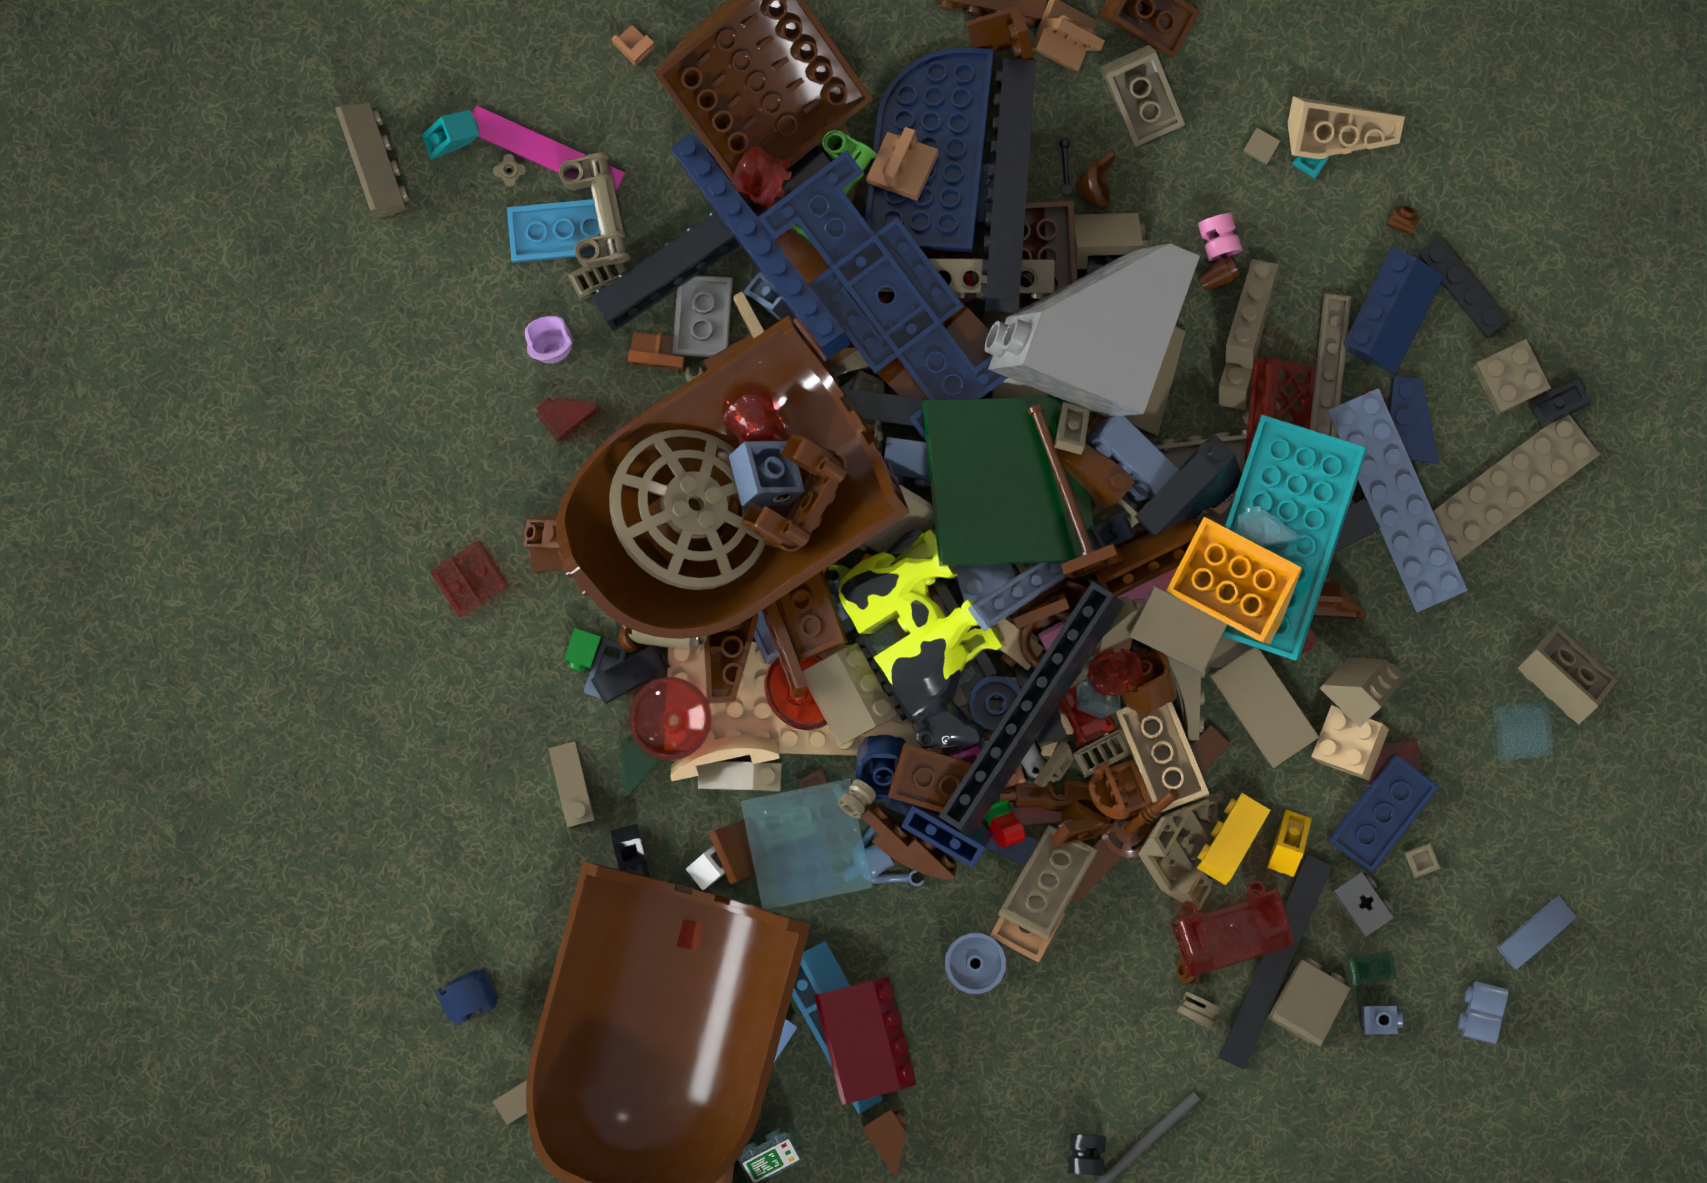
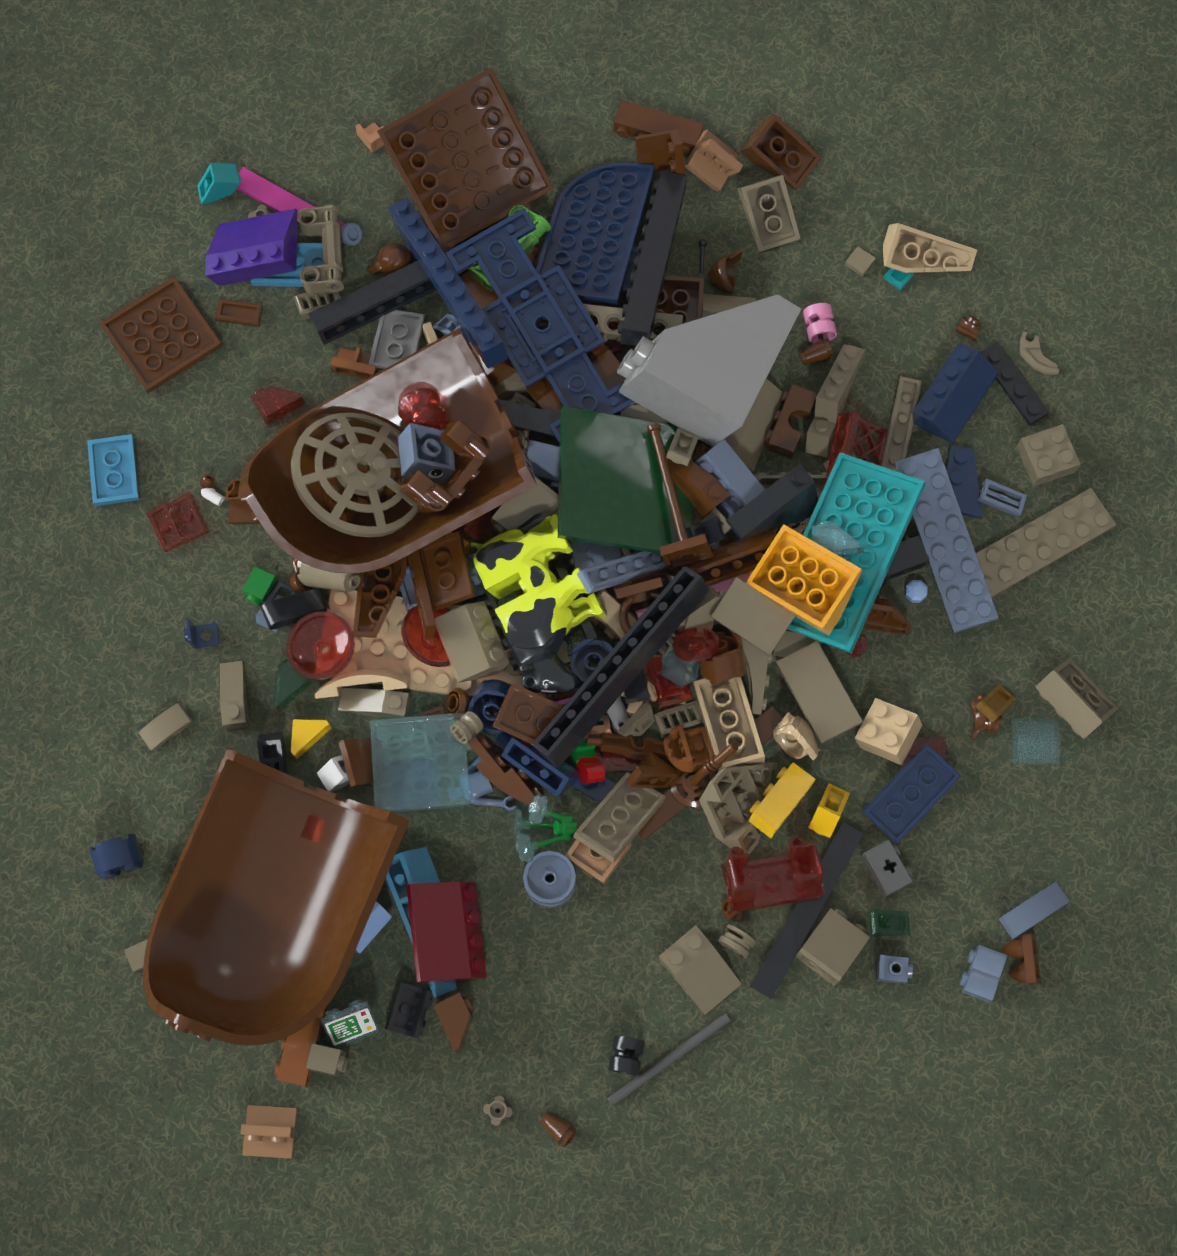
camera: 10 degrees right, 10 degrees down
(372, 160) = (153, 195): dark tan slope -> none
(381, 522) = (113, 470): none -> dark azure plate
(410, 341) = (161, 335): none -> reddish brown plate
(496, 832) = (164, 726): none -> dark tan slope
(500, 534) = (208, 490): none -> arm
(501, 300) = (239, 312): none -> reddish brown tile
(509, 216) = (253, 248): none -> dark purple slope
(512, 720) = (192, 634): none -> dark blue bracket
(548, 339) = (270, 343): lavender helmet -> none
(626, 181) = (351, 234): none -> sand blue tile
(665, 823) = (306, 734): none -> yellow slope
(682, 210) = (391, 258): none -> reddish brown hat
(761, 176) = (454, 225): clear red hair -> none
(832, 1131) = (409, 1010): none -> black bracket
(840, 765) = (458, 701): none -> reddish brown cone
(902, 164) = (570, 235): medium nougat bracket -> none
(953, 887) = (563, 827): none -> clear light blue plant
(1159, 1046) = (699, 970): none -> dark tan slope
(1201, 343) = (797, 403): none -> reddish brown arch
(1244, 763) = (796, 737): none -> tan hair
(1362, 686) = (904, 685): dark tan slope -> none
(1367, 564) = (916, 591): none -> light blue tile
(1422, 860) = (941, 838): dark tan tile -> none
(1438, 430) = (997, 504): none -> sand blue tile
(1460, 711) = (981, 721): none -> reddish brown animal
(1472, 693) = (995, 703): none -> pearl gold tile
(1485, 249) = (1033, 356): none -> dark tan piece
(1529, 978) = (1026, 949): none -> reddish brown tile
(1559, 403) = (1086, 480): black plate -> none

